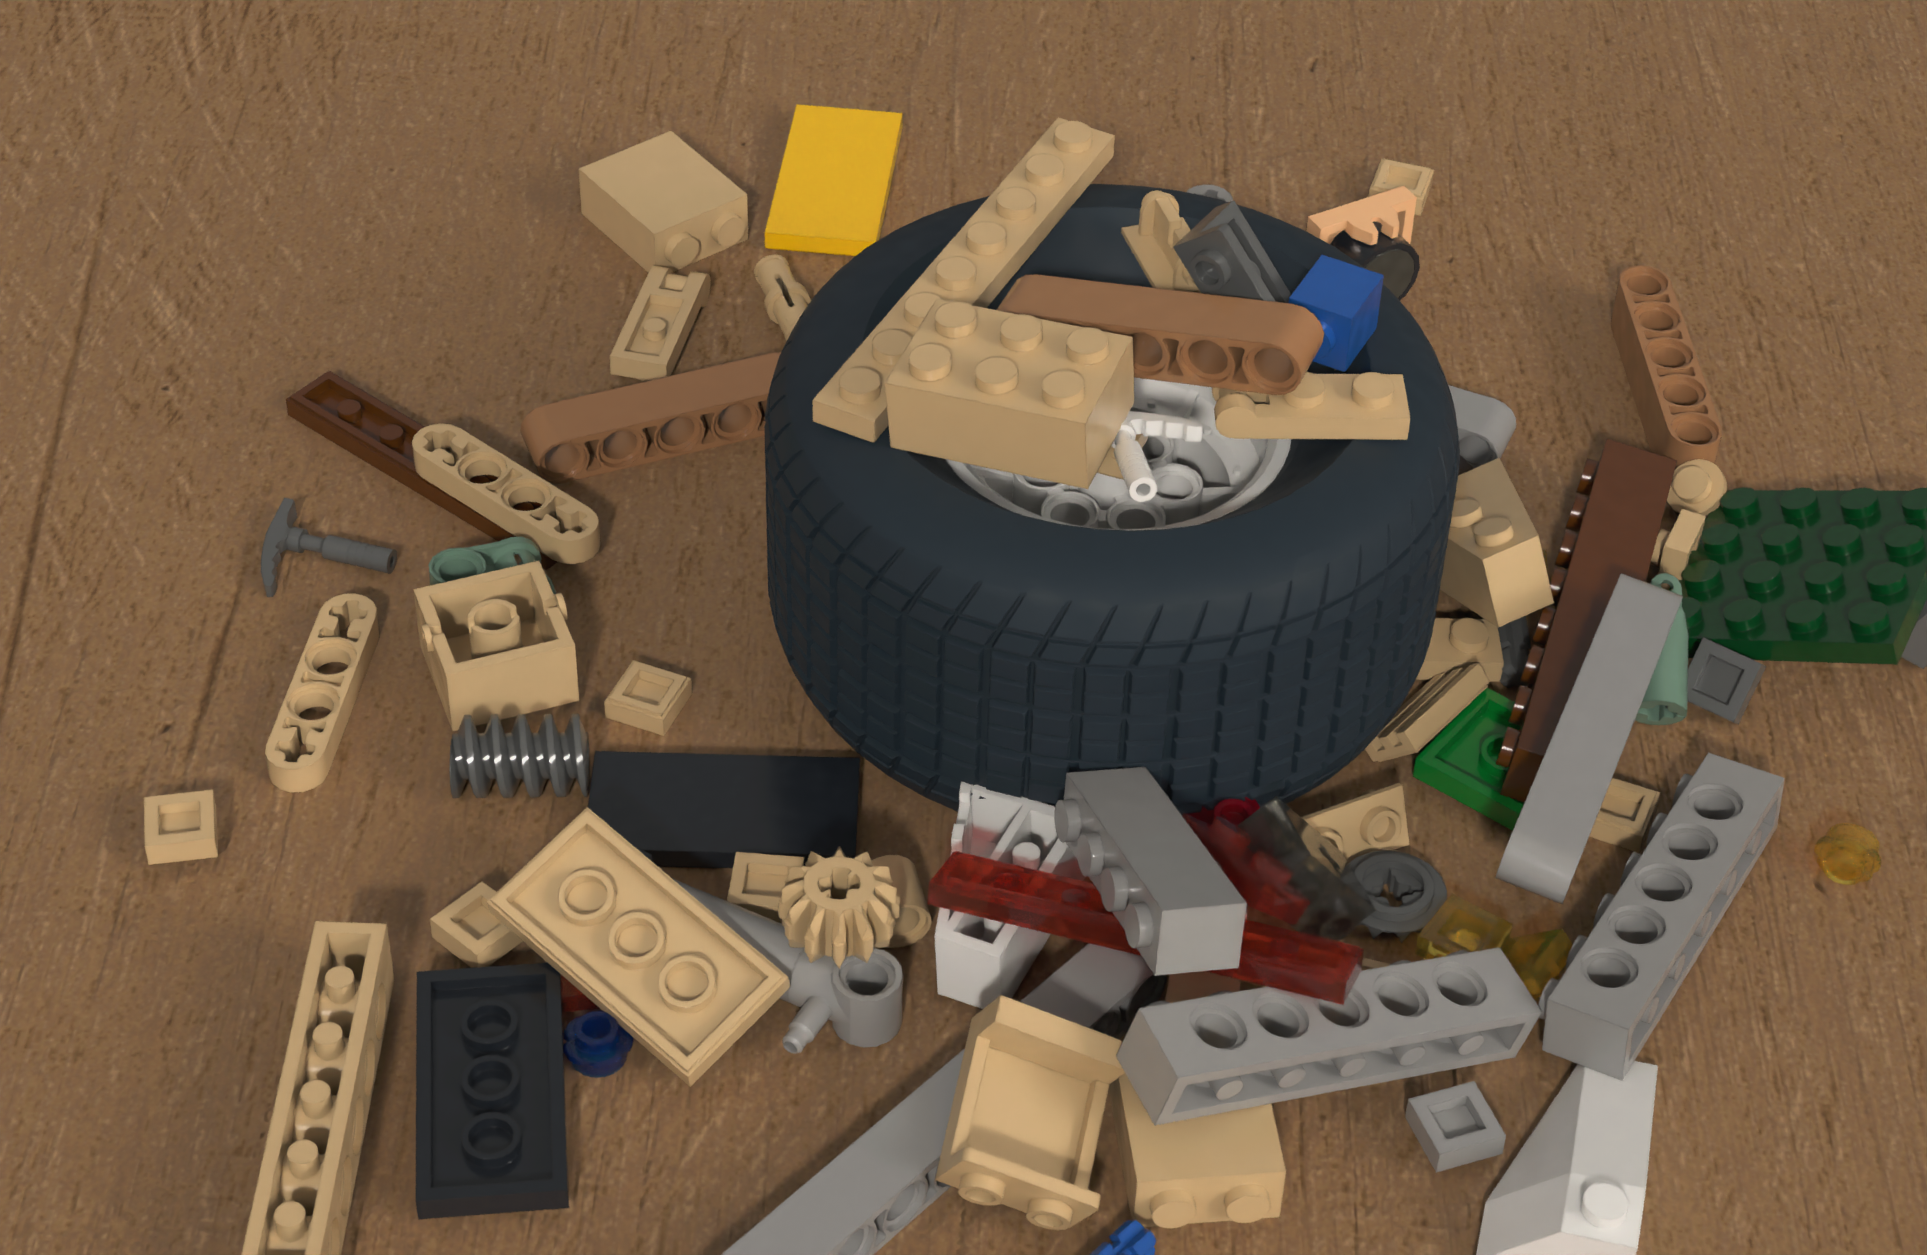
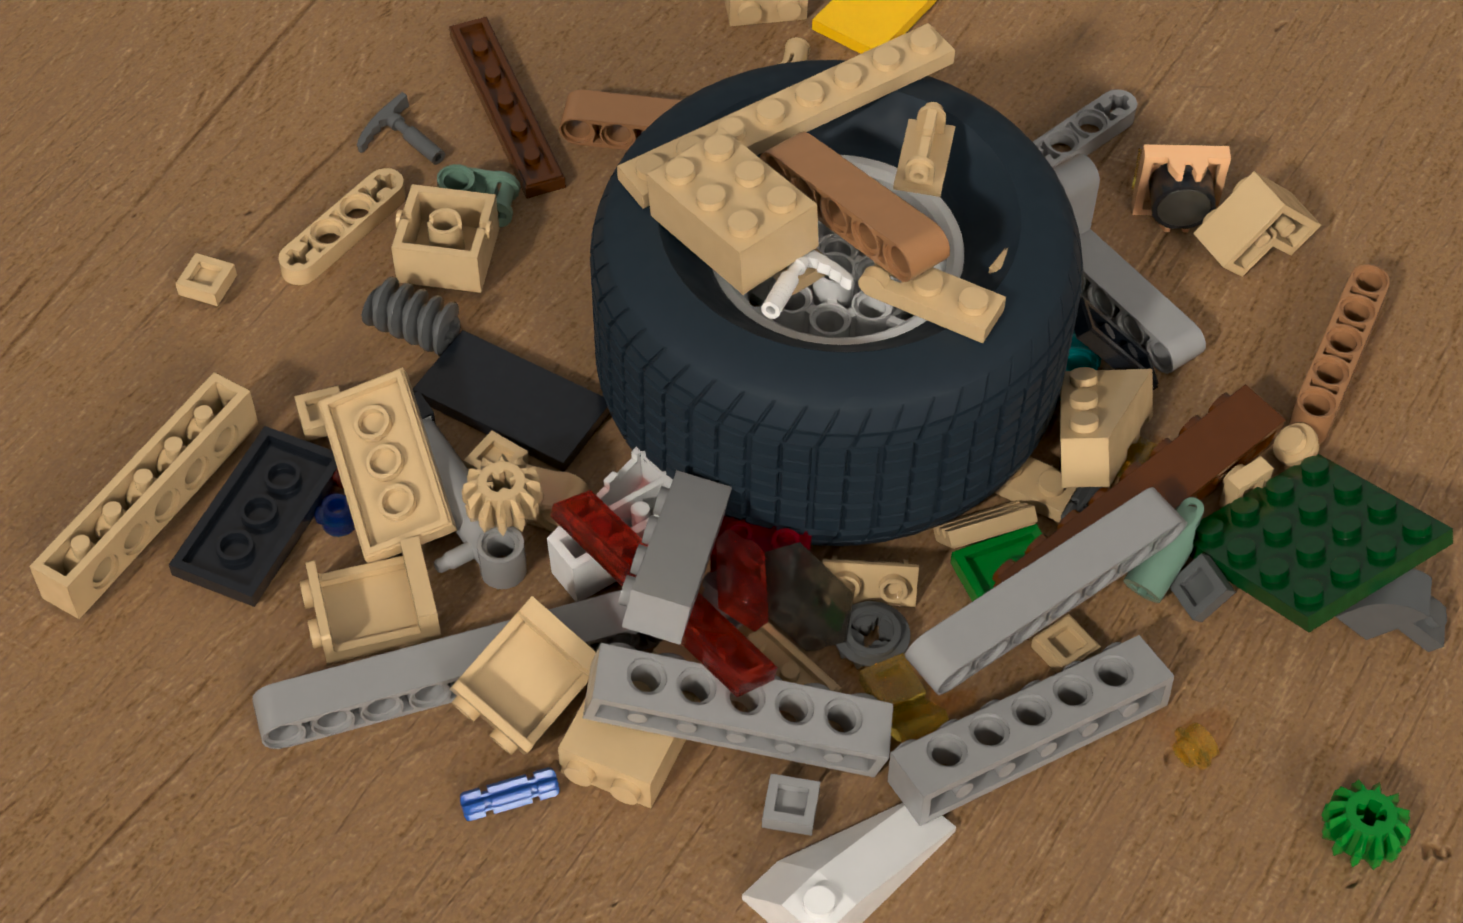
camera: 30 degrees right, 10 degrees up
(514, 485) = (528, 138): tan beam -> none
(648, 697) = (522, 307): tan tile -> none
(659, 324) = (702, 58): tan plate -> none
(739, 1128) = (372, 606): none -> tan panel
(1229, 259) = (937, 182): dark grey bracket -> none
(1346, 305) = (992, 235): blue brick -> none
(1396, 174) = (1268, 141): tan tile -> none
(1472, 269) = (1254, 221): none -> tan brick

